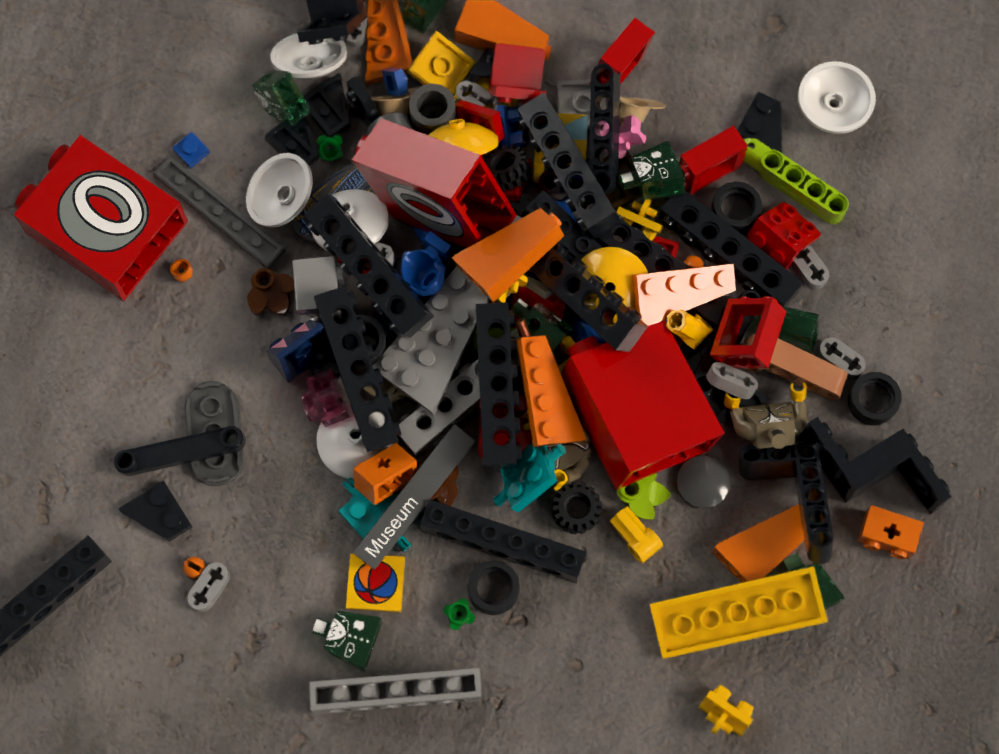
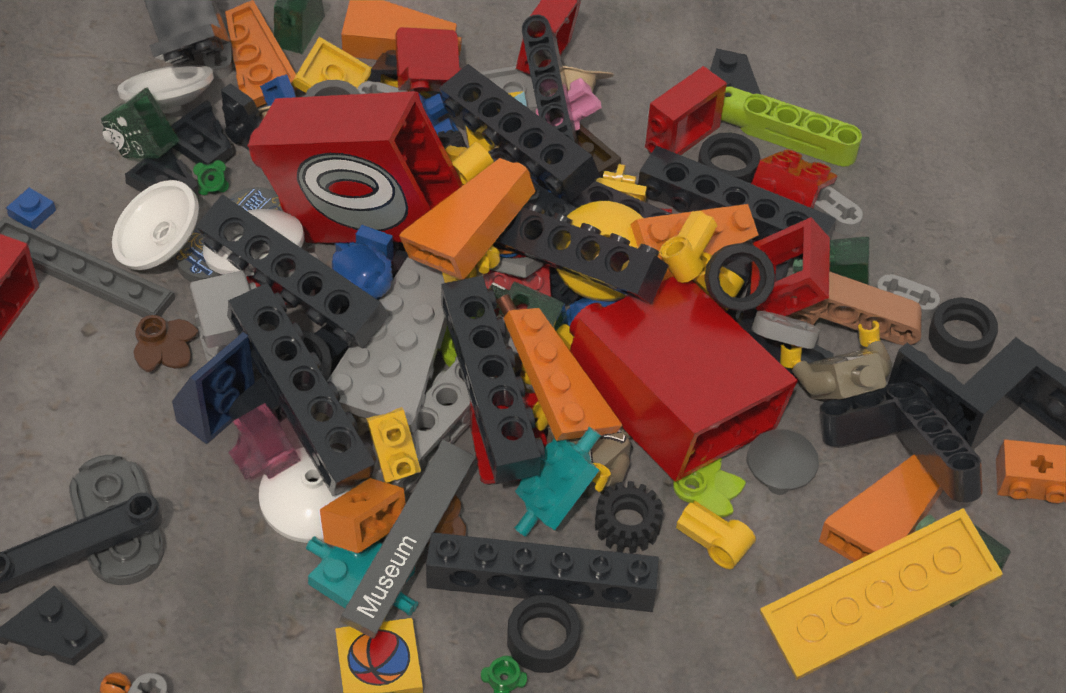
camera: 15 degrees left, 20 degrees down
(178, 265) = (40, 336): orange hinge -> none
(415, 429) = (393, 445): none -> yellow hips
(519, 191) = (469, 161): none -> yellow piece
(655, 173) = (624, 133): clear green torso -> none
(664, 310) = (684, 251): none -> yellow piece
(702, 360) = (765, 285): none -> black tyre
(840, 85) = (810, 36): white dish -> none

